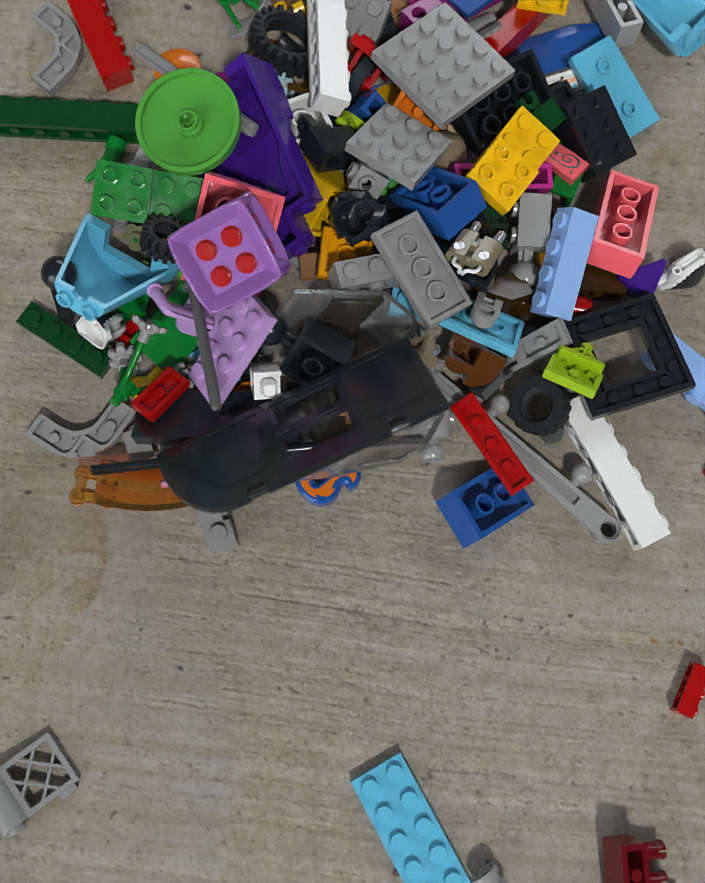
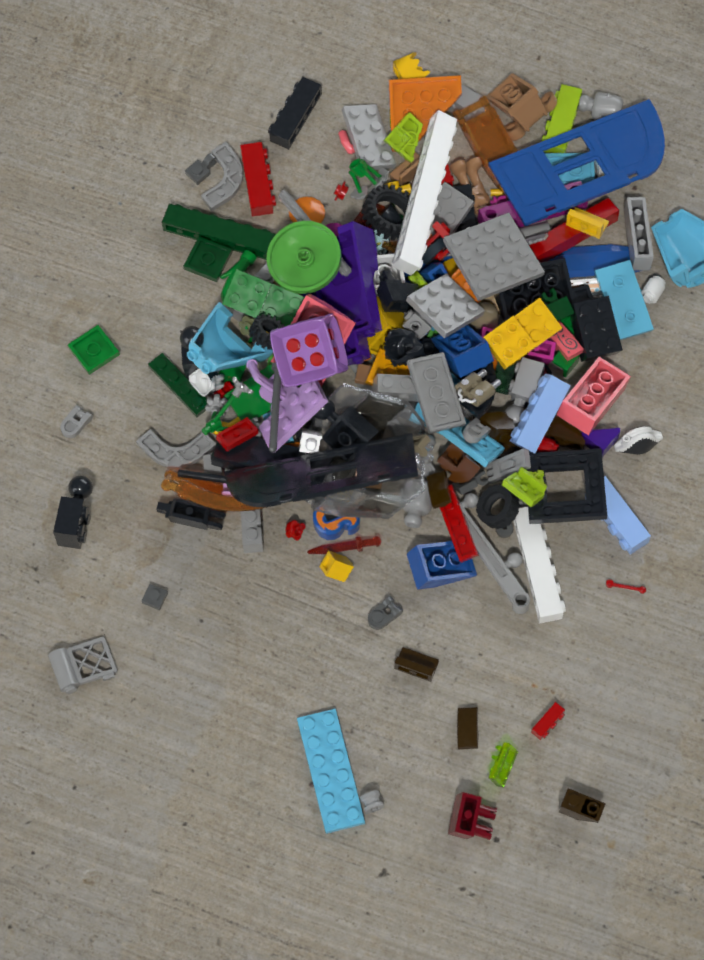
camera: 20 degrees right, 10 degrees down
(24, 47) = (200, 170): none -> dark grey plate
(62, 160) = (207, 259): none -> dark green plate
(106, 653) = (154, 597): none -> dark grey plate
(121, 522) = (190, 514): none -> black hinge
(214, 32) = (341, 191): none -> red plate
(275, 506) = (294, 529): none -> red plate
(345, 543) = (336, 566): none -> yellow panel
(365, 503) = (345, 546): none -> clear red sword
(420, 601) = (379, 619): none -> dark grey plate
(462, 408) = (438, 489): none -> dark brown slope
(491, 654) = (416, 664): none -> dark brown panel
(589, 733) = (467, 728): none -> dark brown slope
(645, 67) = (653, 289): none -> white brick
(650, 785) = (502, 764): none -> clear neon green plate

